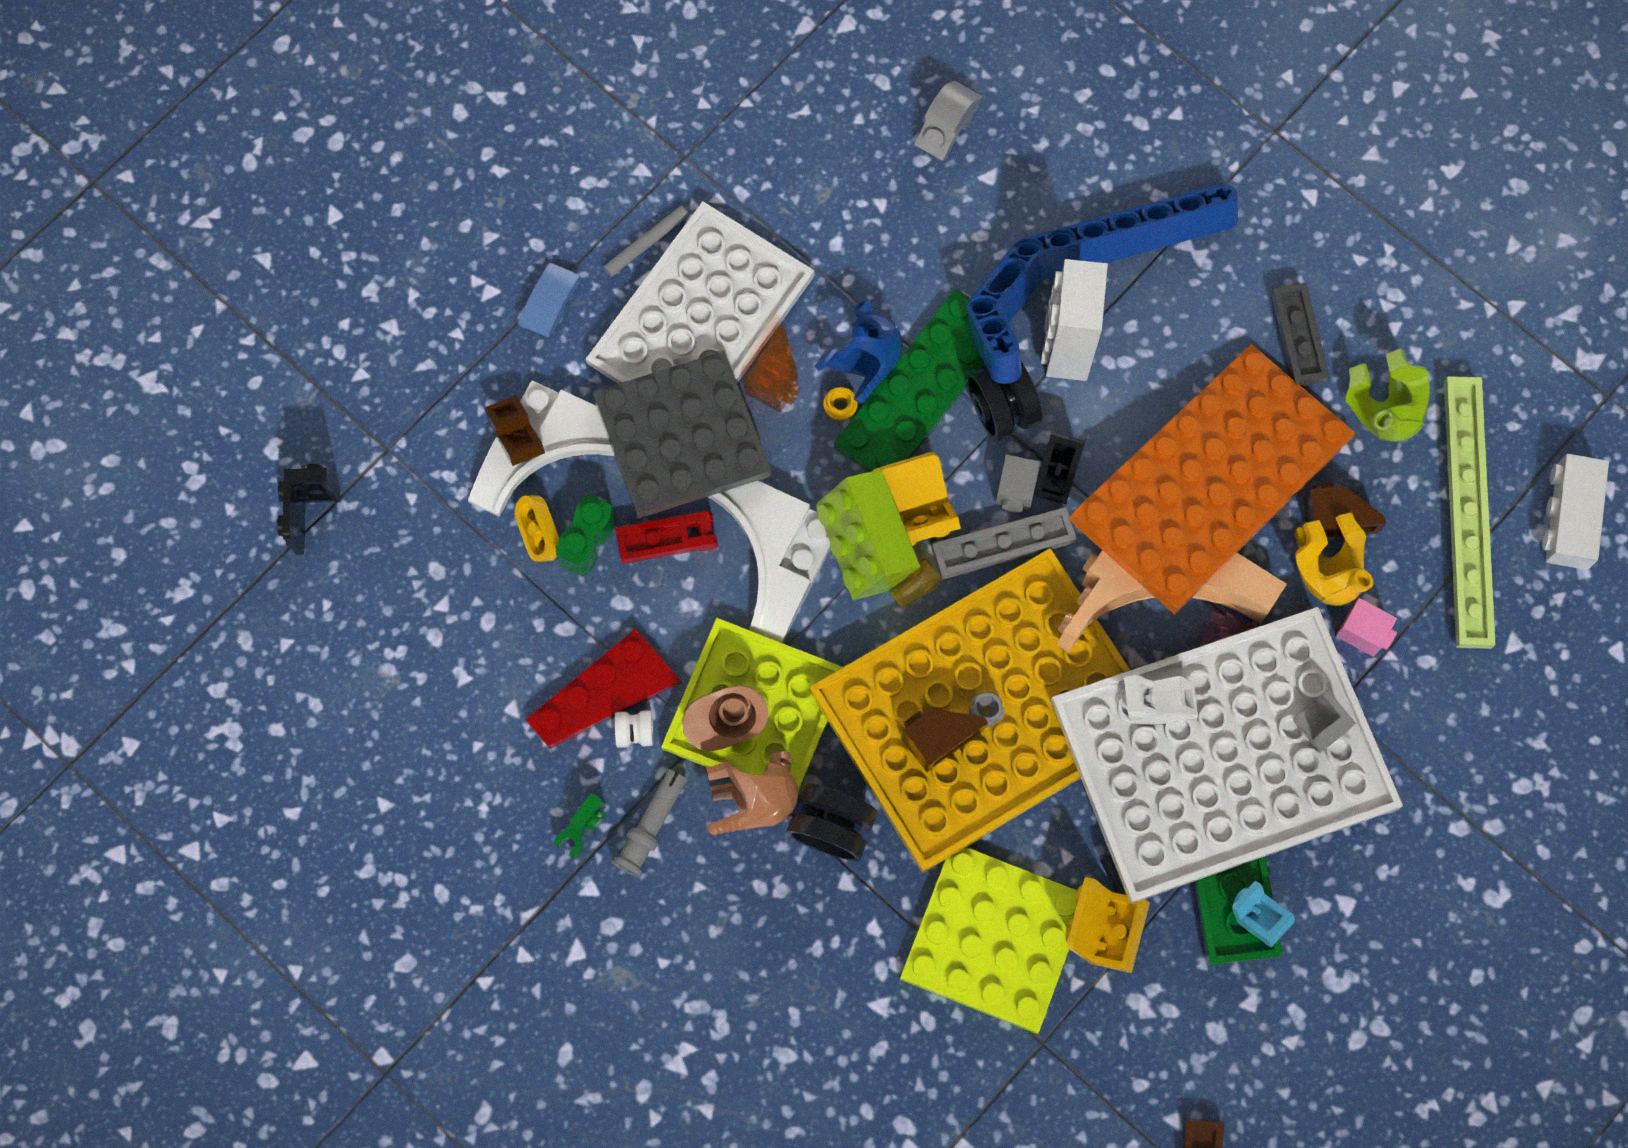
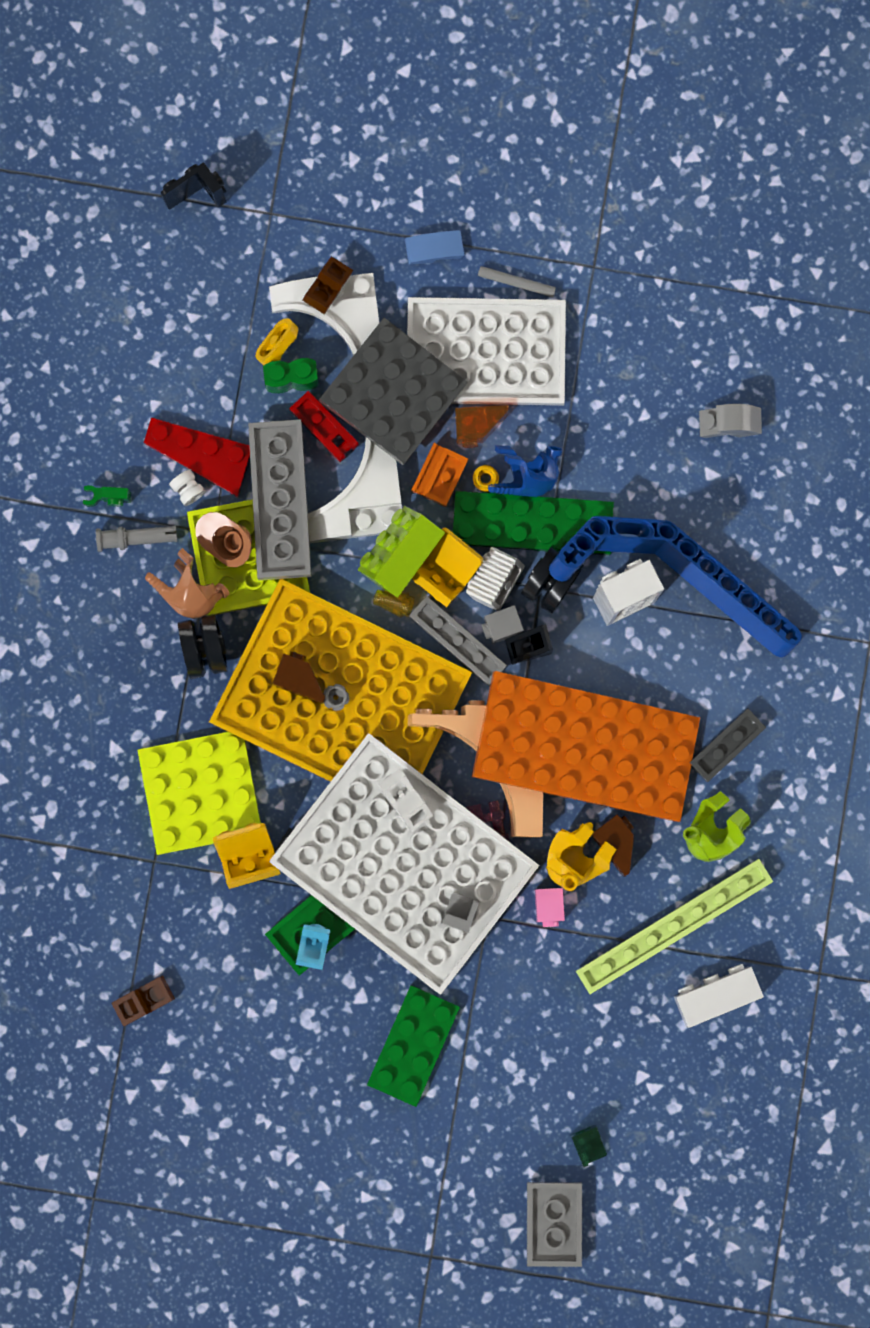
camera: 55 degrees right, 10 degrees up
(719, 632) = (279, 500): none -> light grey plate
(805, 448) = (440, 475): none -> orange plate
(962, 459) = (495, 579): none -> white brick
(1439, 879) = (413, 1046): none -> green plate

